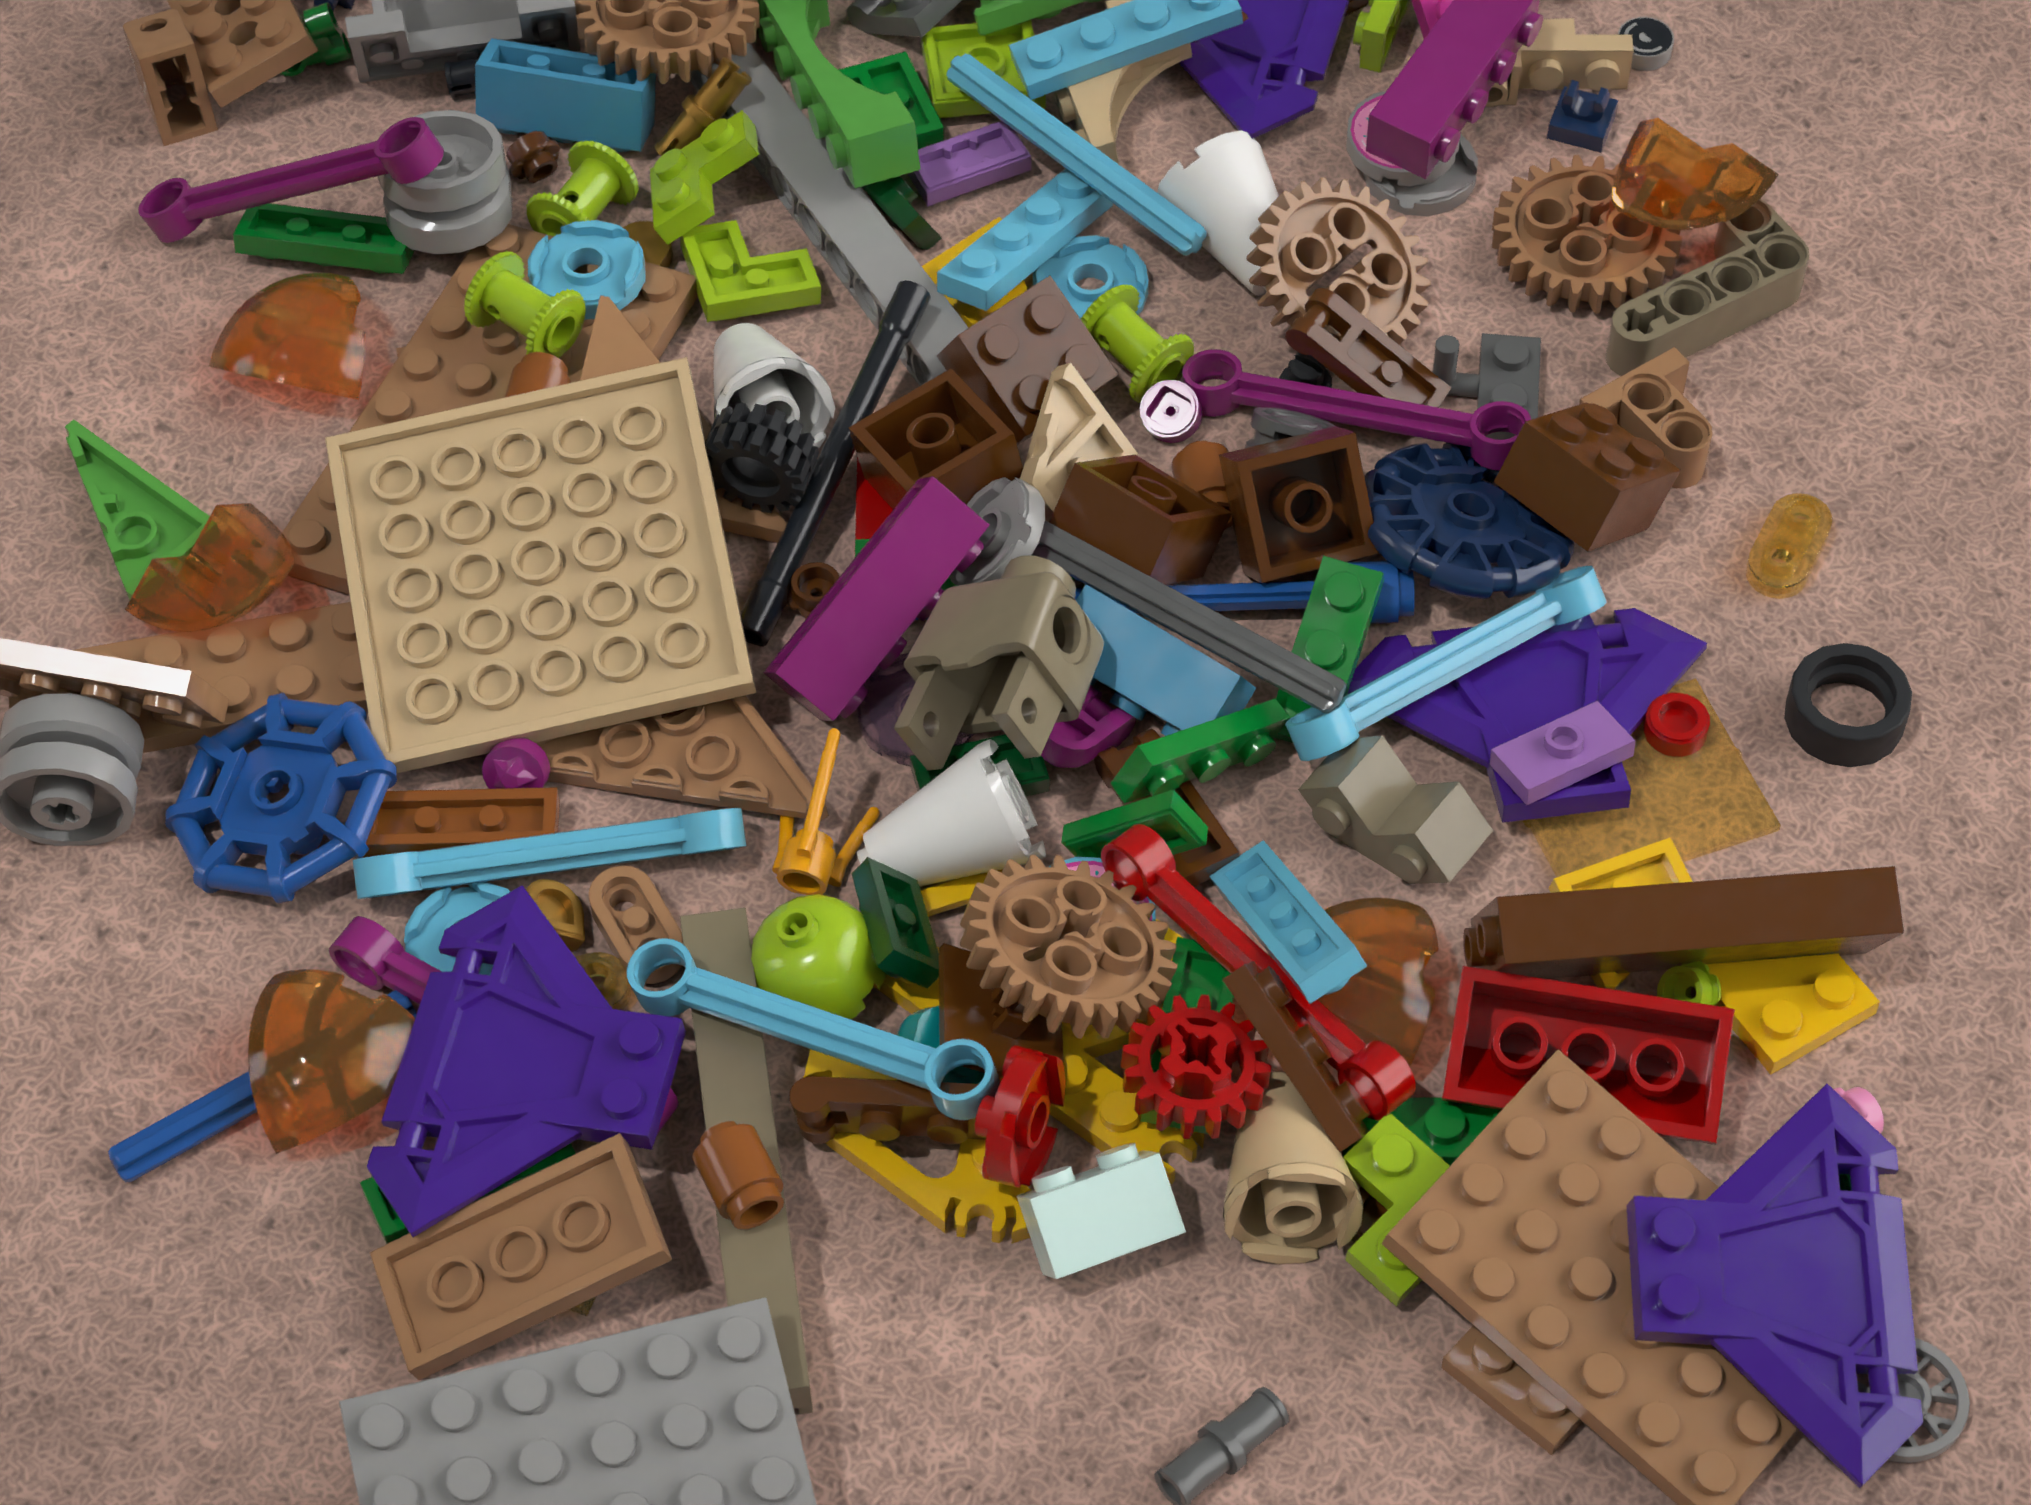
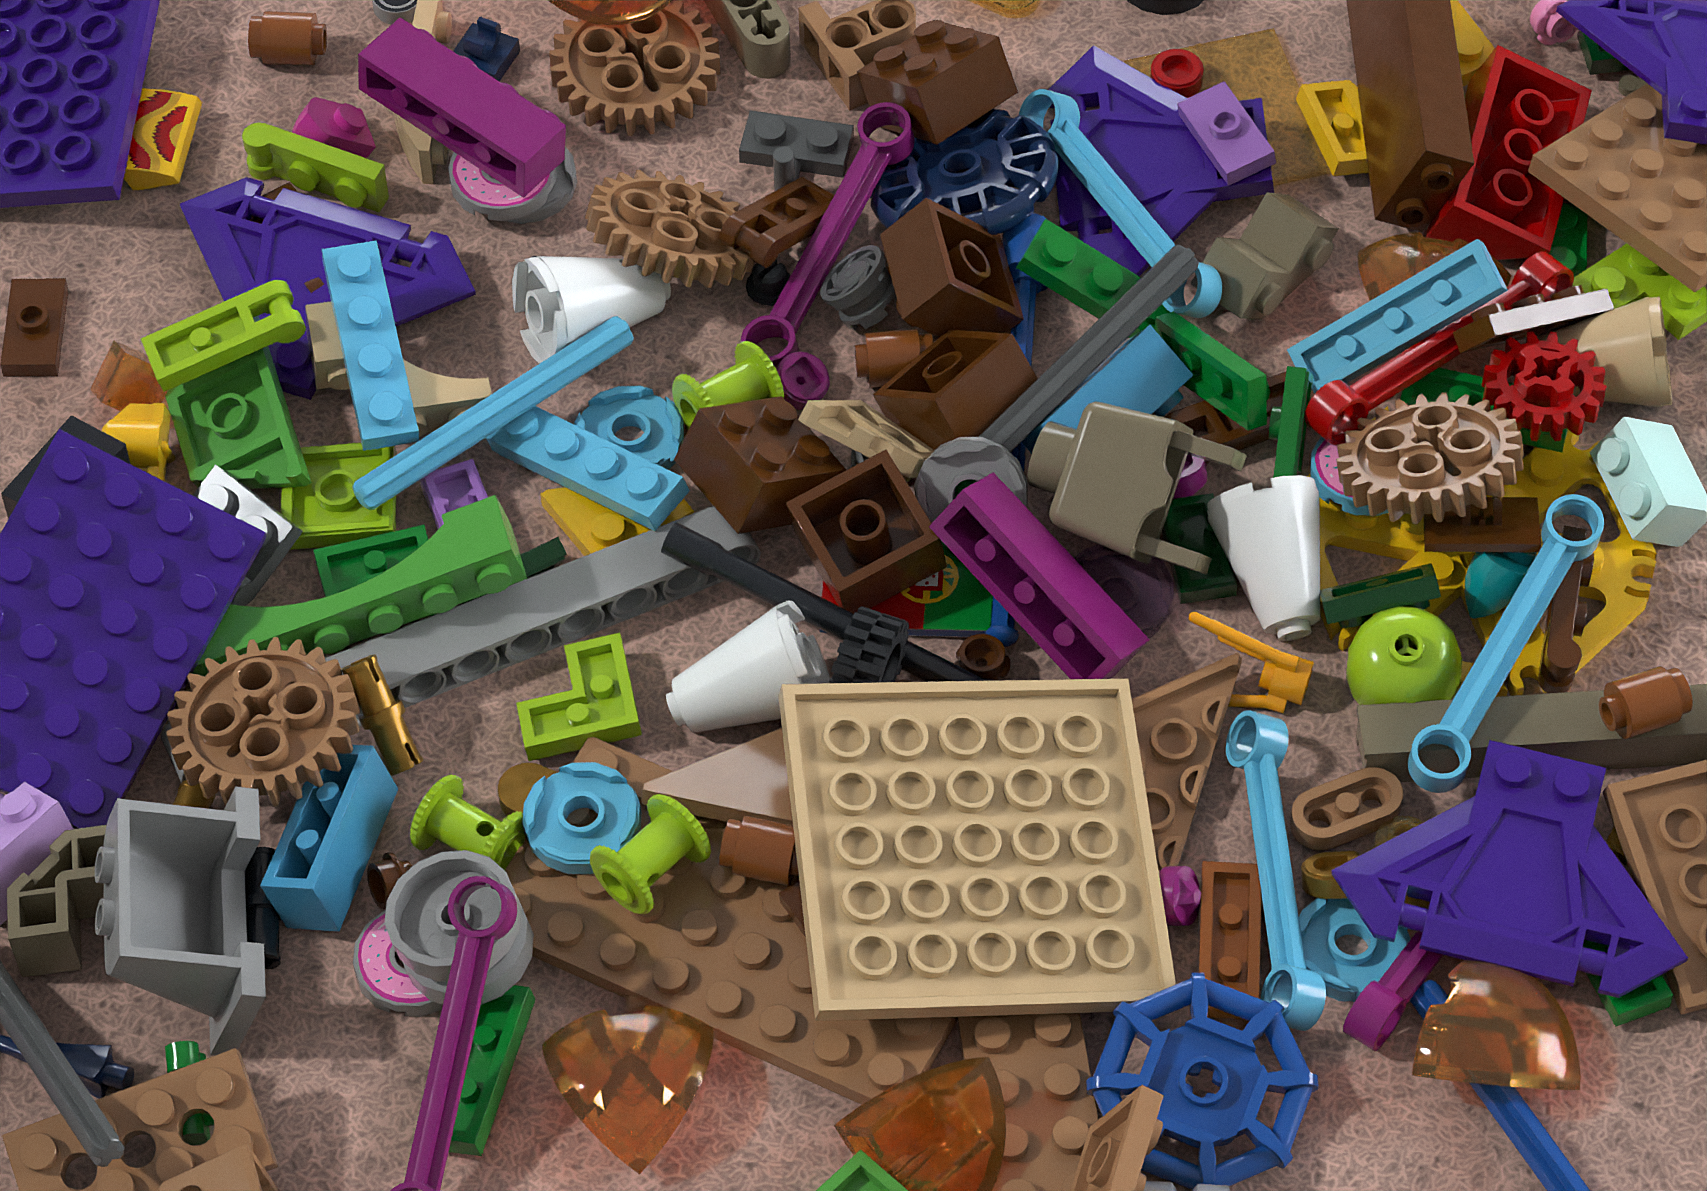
camera: 85 degrees left, 0 degrees up
(685, 176) = (454, 735): lime plate -> none
(1018, 1117) = (1622, 515): red plate -> none

